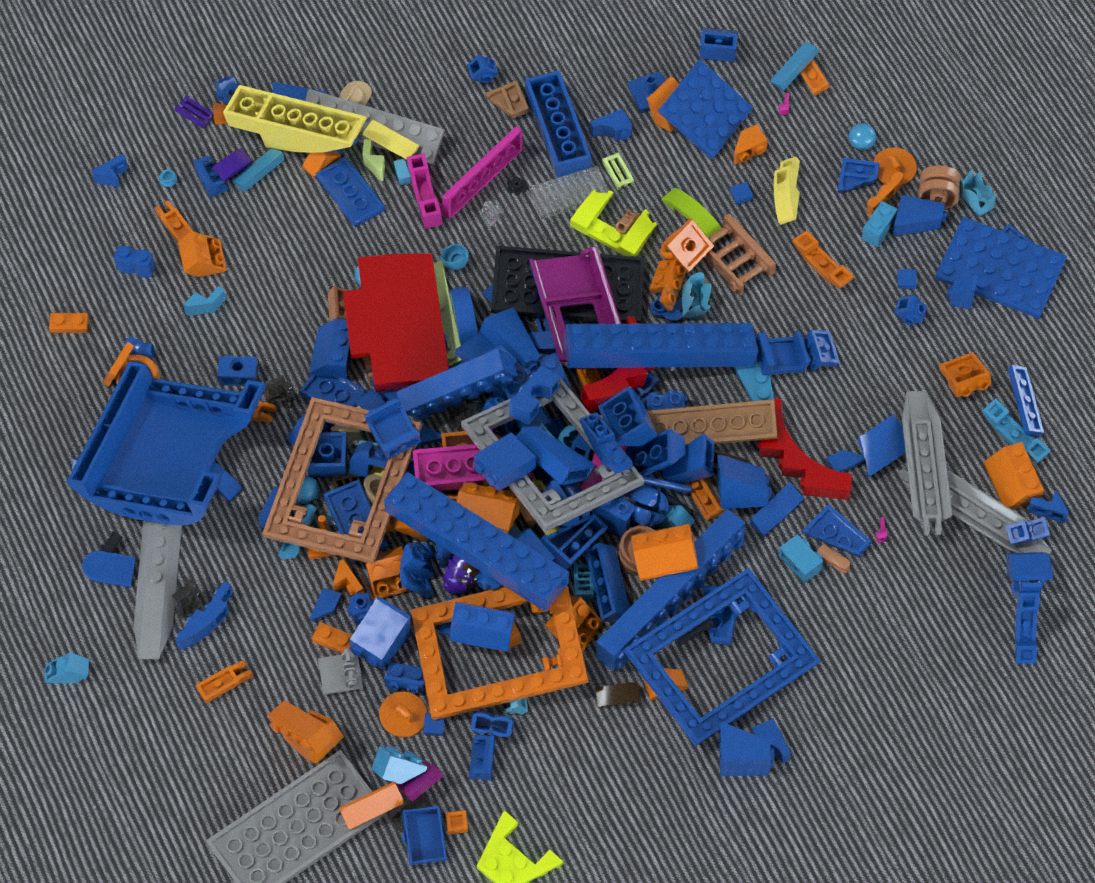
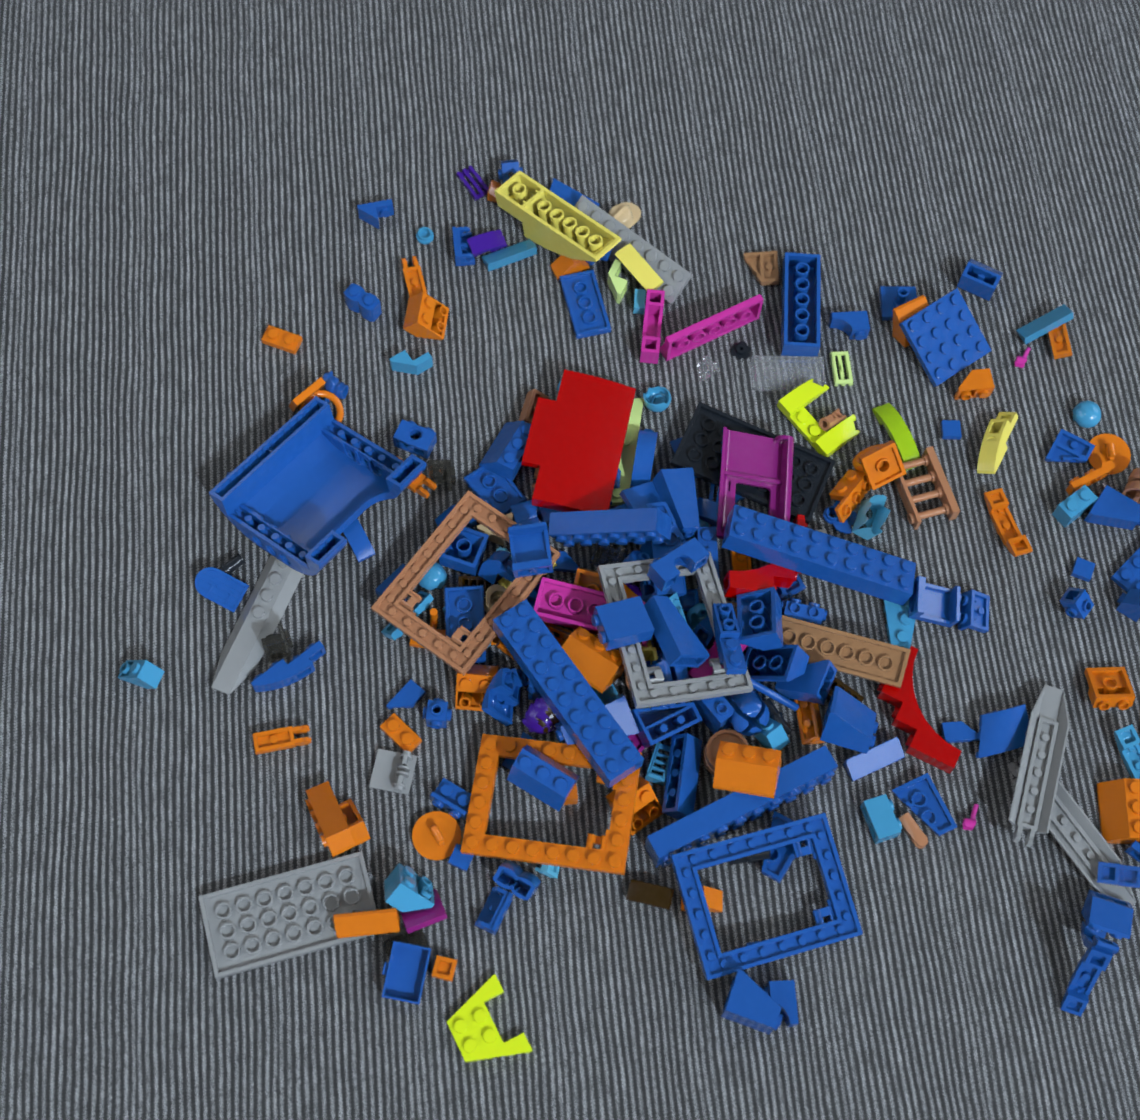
camera: 15 degrees right, 5 degrees up
(345, 578) = (434, 677): orange slope -> none
(380, 633) = (444, 747): slope -> none
(482, 69) = (749, 229): blue brick -> none

